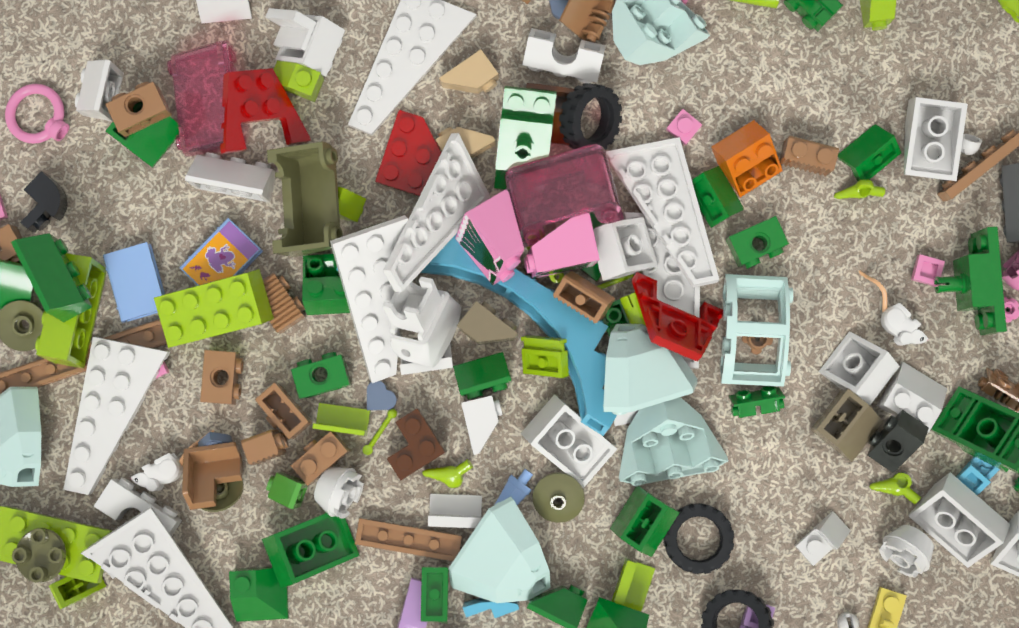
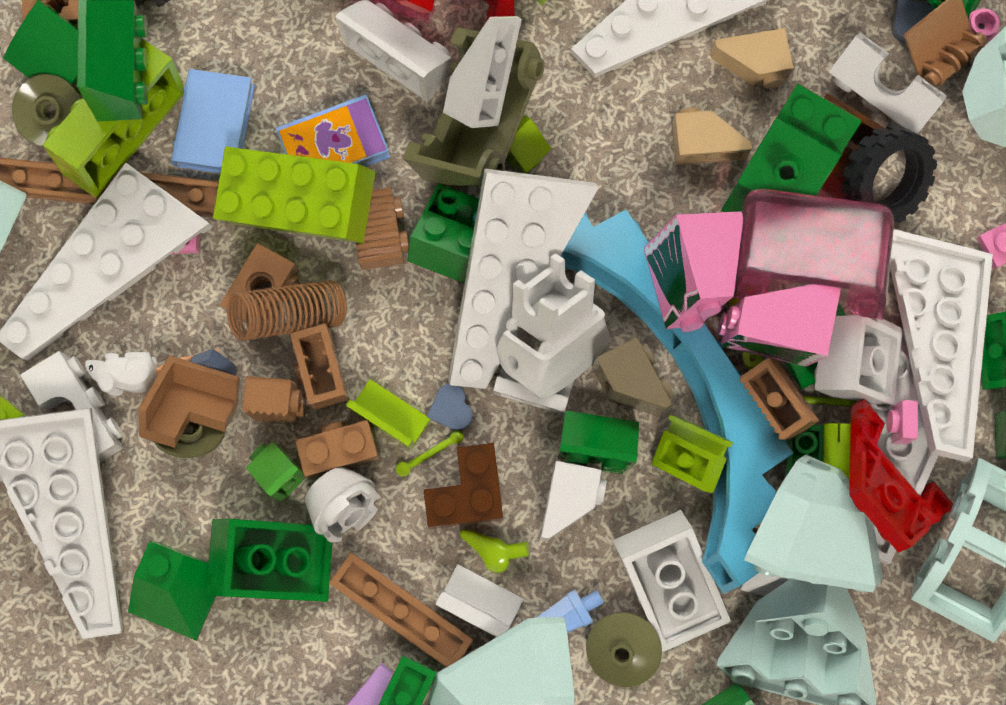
camera: 25 degrees right, 5 degrees down
(228, 402) = (318, 306): none -> medium nougat piece
(299, 176) = (482, 76): none -> white slope
(305, 380) = (406, 359): green brick -> none
(408, 155) = (635, 133): red plate -> none
(436, 218) = (636, 202): white wing -> none
(667, 275) = (903, 422): none -> bright pink plate
(756, 347) = (976, 572): medium nougat plate -> none
(768, 398) = (963, 650): green hinge -> none

